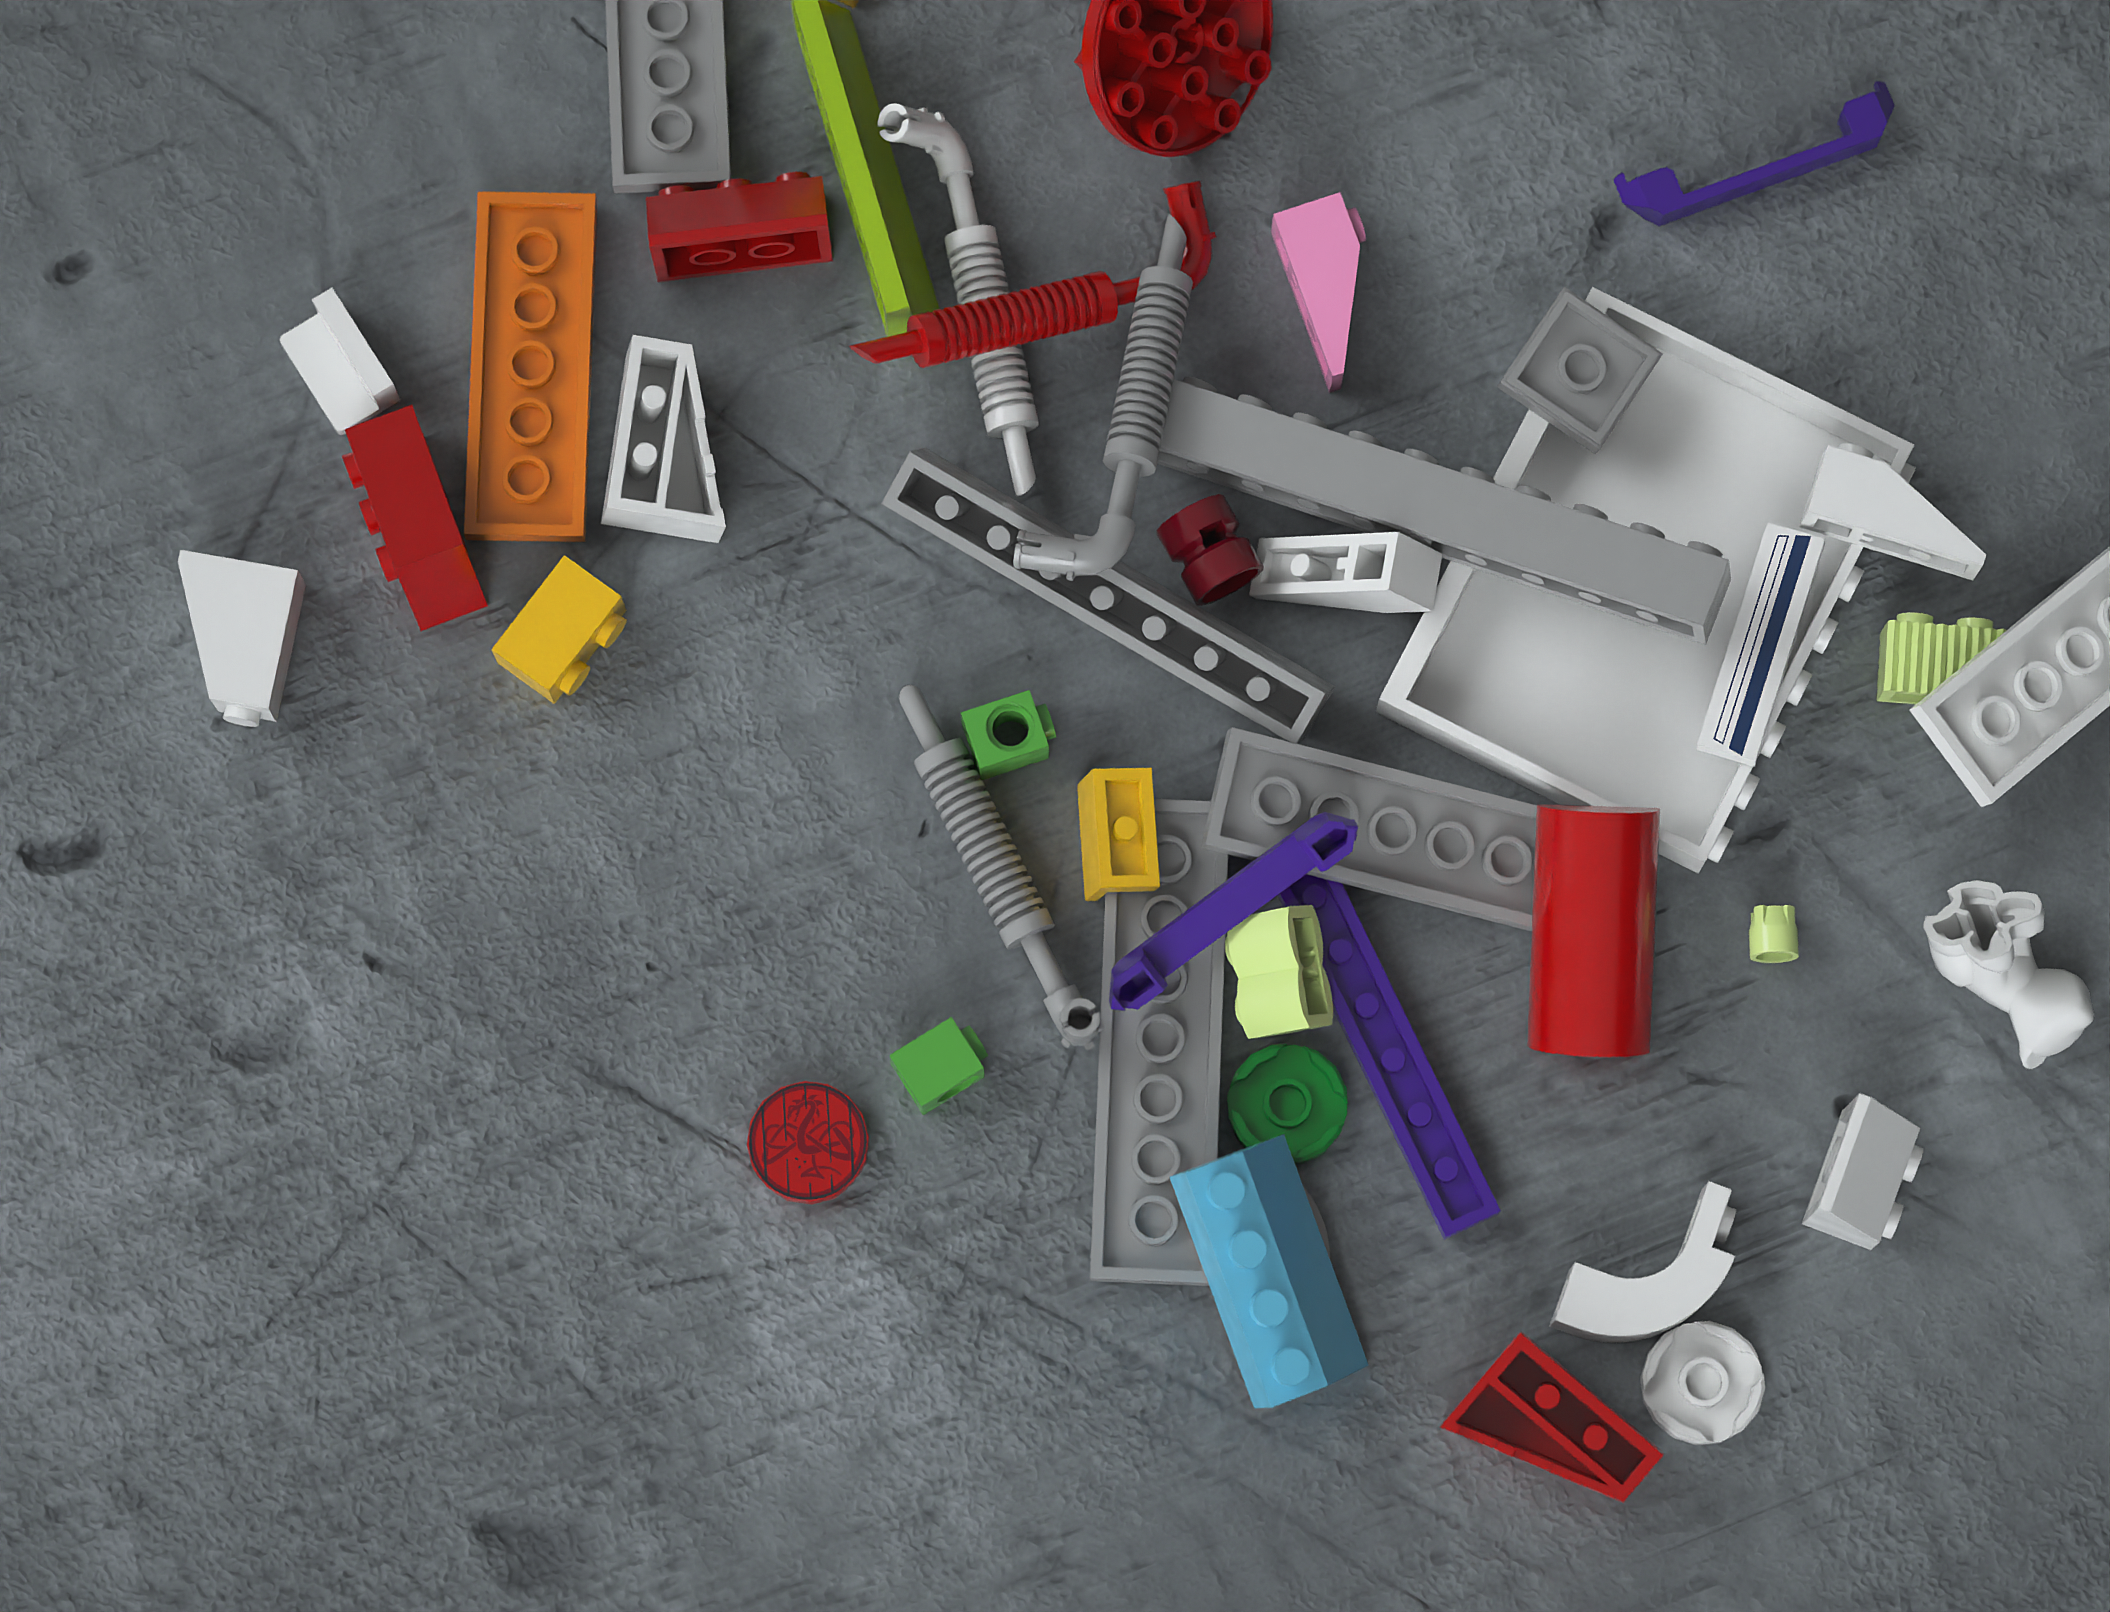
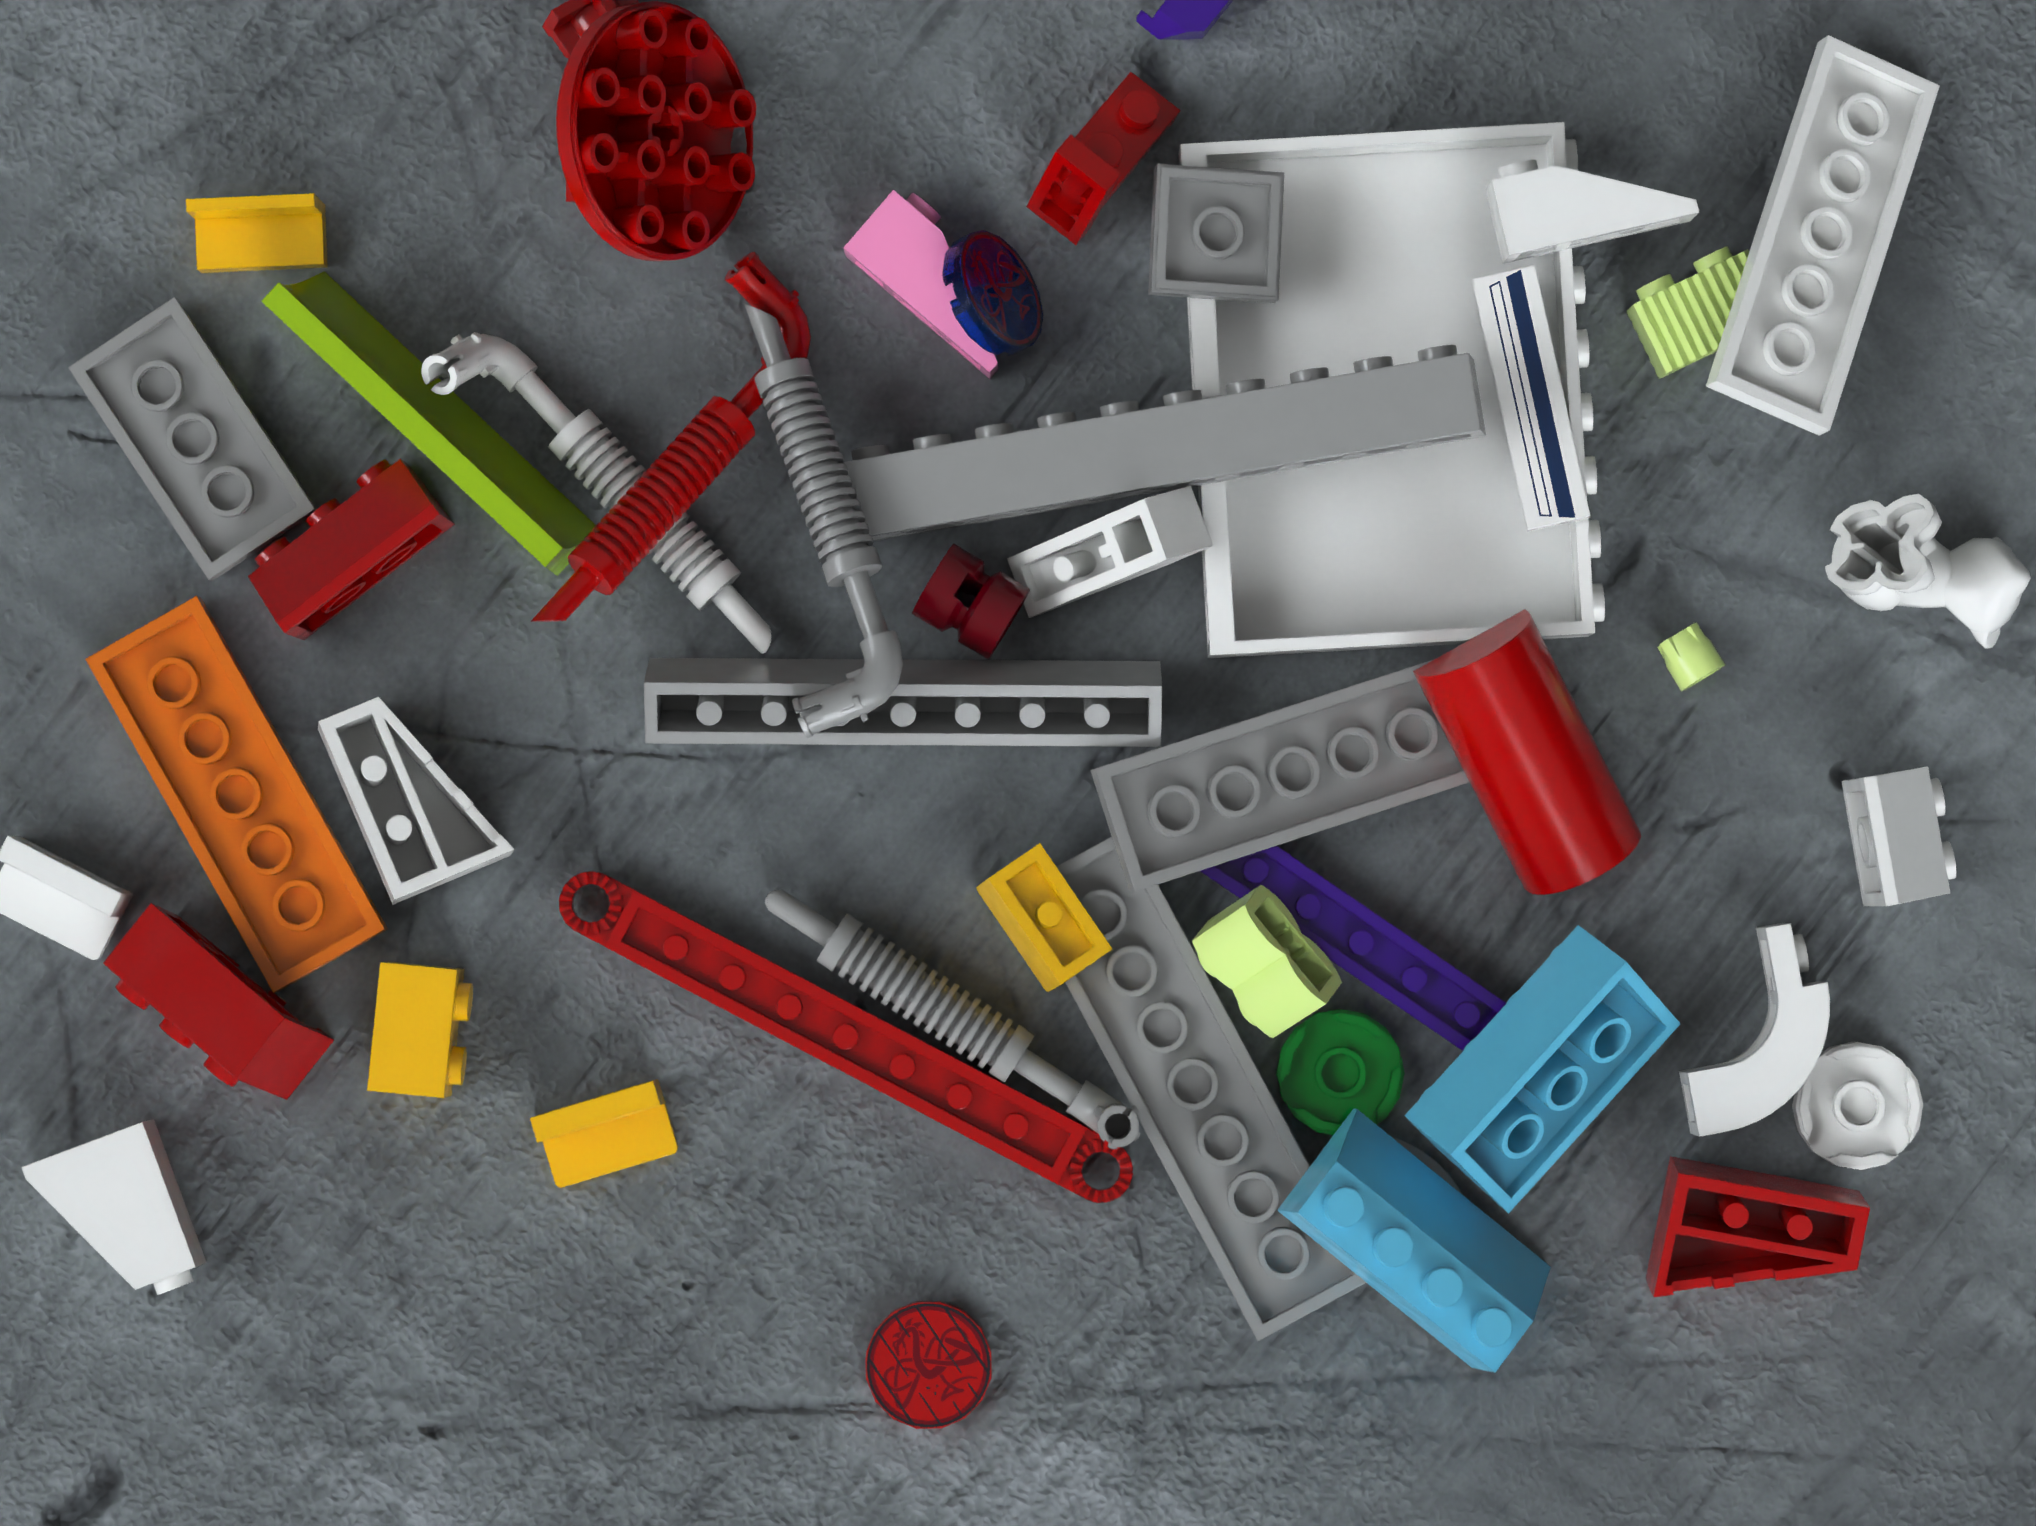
camera: 30 degrees left, 10 degrees up
(660, 801) = (606, 1133): none -> yellow panel
(902, 839) = (844, 1036): none -> red plate
(939, 1064) = (1007, 1226): bright green brick -> none
(992, 756) = (858, 892): bright green brick -> none
(1144, 970) = (1142, 1042): dark purple piece -> none
(1372, 318) = (993, 292): none -> clear blue tile
(1457, 1188) = (1543, 1068): none -> medium azure slope
(1520, 264) = (1101, 157): none -> red bracket

